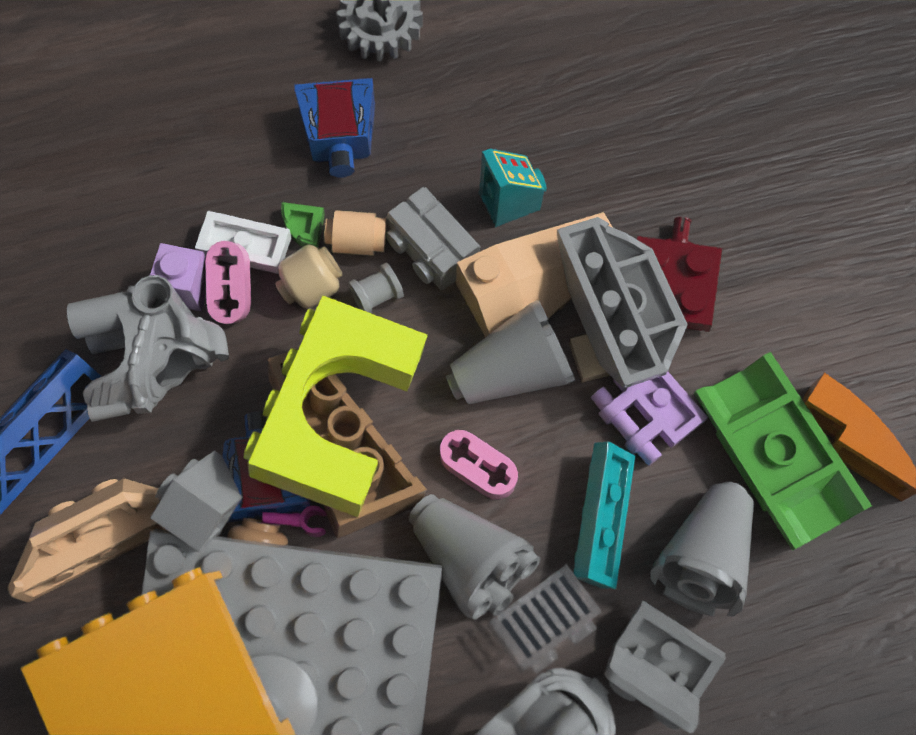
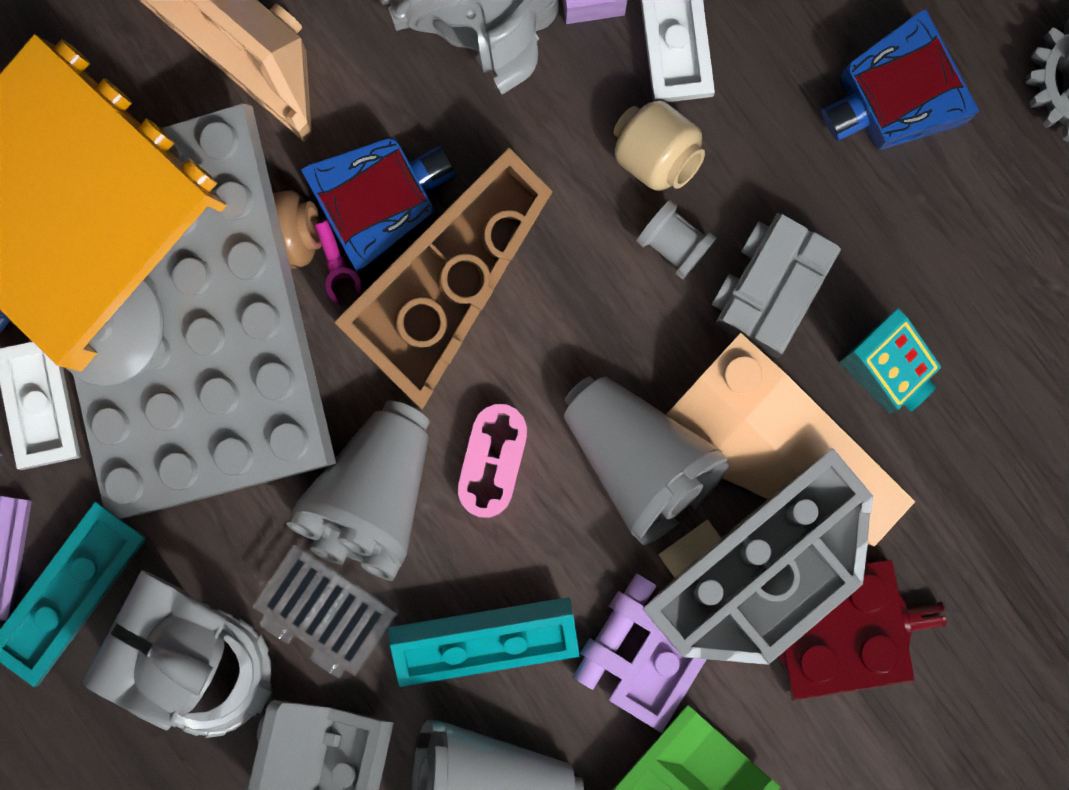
camera: 70 degrees right, 15 degrees up
(197, 501) = (297, 147): light grey slope -> none
(217, 282) = (602, 34): bright pink beam -> none
(304, 222) = (738, 104): bright green tile -> none
(334, 342) = (557, 220): neon yellow arch -> none
(355, 233) = (746, 181): light nougat brick -> none

